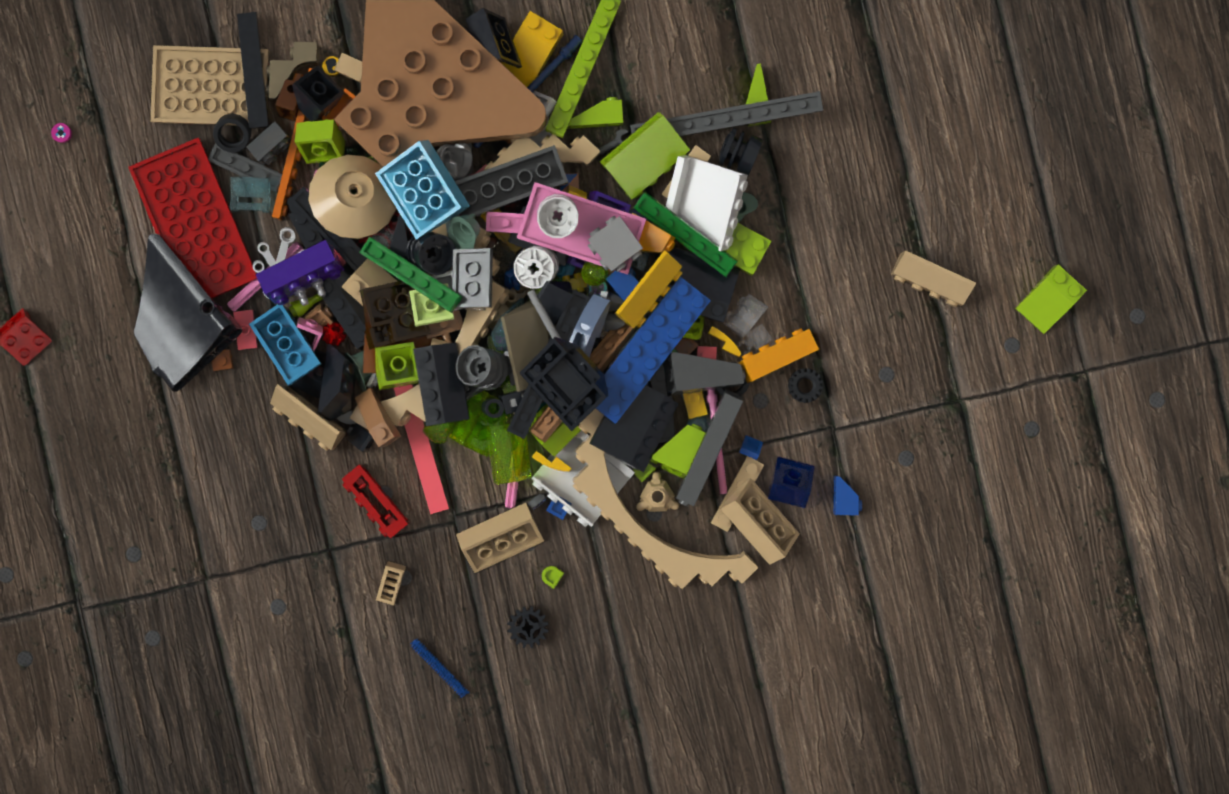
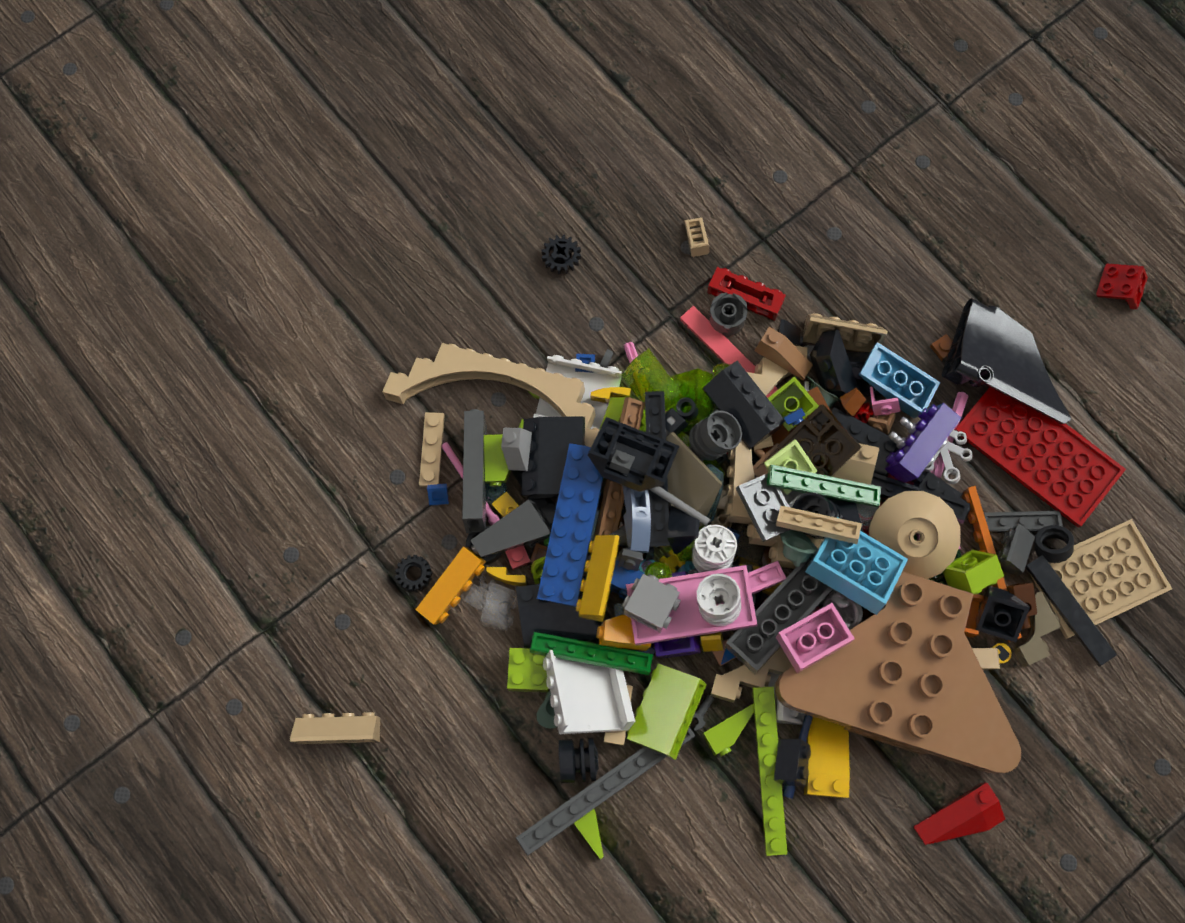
camera: 155 degrees right, 15 degrees down
(247, 338) = (946, 388): coral plate -> none
(250, 188) = (1007, 504): clear light blue plate -> none
(299, 310) = (899, 429): lime cone -> none
(339, 344) = (852, 401): none -> dark orange slope
(395, 481) = (721, 308): none -> dark grey brick
(403, 348) = (795, 417): none -> blue plate
(438, 237) = (818, 524): none -> tan plate
(439, 668) = (616, 191): blue piece -> none
(493, 144) = (814, 637): none -> bright pink brick
(494, 35) = (868, 752): black slope -> none
(499, 537) = (623, 314): tan slope -> none
(551, 576) = (562, 306): lime tile -> none
(562, 60) = (792, 762): none -> black brick
(579, 379) = (622, 462): none -> dark grey plate
(613, 293) = (630, 559): none -> dark grey plate
(657, 496) = (503, 412): tan rock -> none
(664, 444) = (516, 448): none -> light grey slope
(760, 521) = (398, 432): tan slope -> none
(791, 482) = (386, 481): clear blue slope -> none
(845, 499) = (330, 489): blue slope -> none
(1050, 298) = (213, 768): lime slope -> none

